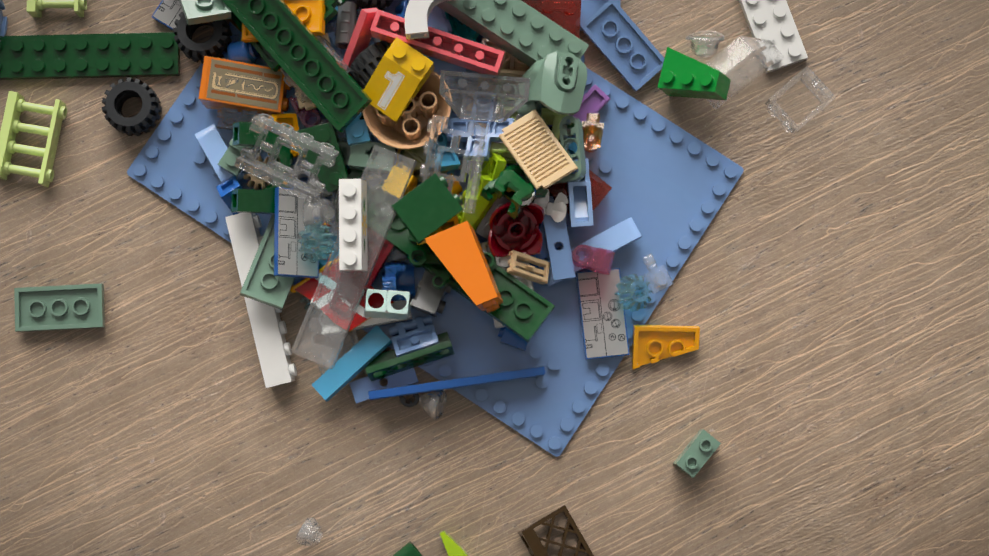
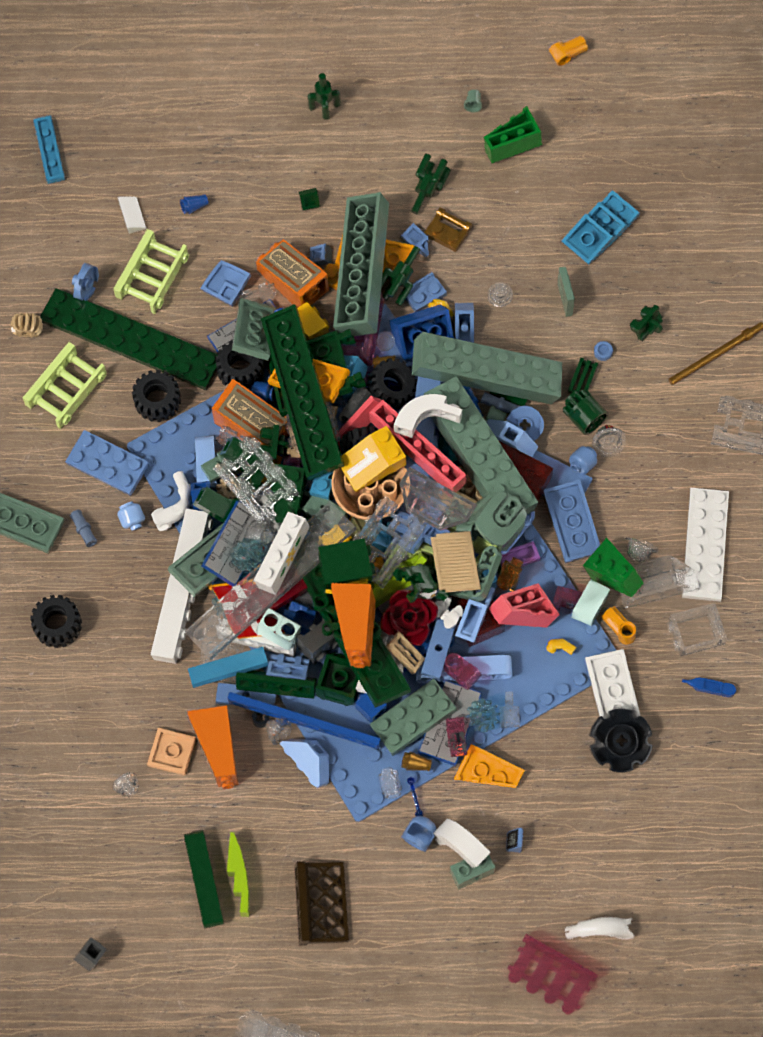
camera: 30 degrees right, 15 degrees down
(116, 202) = (107, 462): none -> medium blue plate
(127, 284) = (83, 528): none -> sand blue pin
(132, 393) = (45, 611): none -> black tyre
(170, 248) = (131, 516): none -> light blue head
(207, 235) = (166, 517): none -> white piece
(276, 97) = (272, 435): none -> dark green hips
(336, 474) = (171, 751): none -> light nougat tile
(379, 447) = (215, 738): none -> orange slope
(469, 324) = (337, 680): none -> dark green slope
(479, 417) = (310, 759): none -> light blue slope
(565, 326) = (413, 717): none -> sand green plate
(574, 405) = (390, 783): none -> clear brick
(587, 372) = (415, 762): none -> pearl gold cone
(614, 419) = (410, 781): none -> clear blue hinge
(619, 329) = (456, 737): none -> clear pink leg
(624, 161) = (524, 608): none -> coral wedge
(627, 442) = (419, 833): none -> medium blue helmet
(662, 128) = (566, 598): none -> clear pink leg
(672, 180) = (555, 644): none -> yellow arm
(678, 436) = (462, 842): none -> white arch
(683, 122) = (590, 602): none -> light aqua piece
(718, 131) = (618, 624): none -> light orange piece
(722, 402) = (514, 840): none -> slope
(747, 203) = (612, 683): none -> white tile
(792, 259) = (633, 750): none -> black piece
(833, 516) = (561, 977): none -> clear pink fence
(839, 152) = (712, 686): none -> blue piece
(852, 453) = (601, 926): none -> white piece

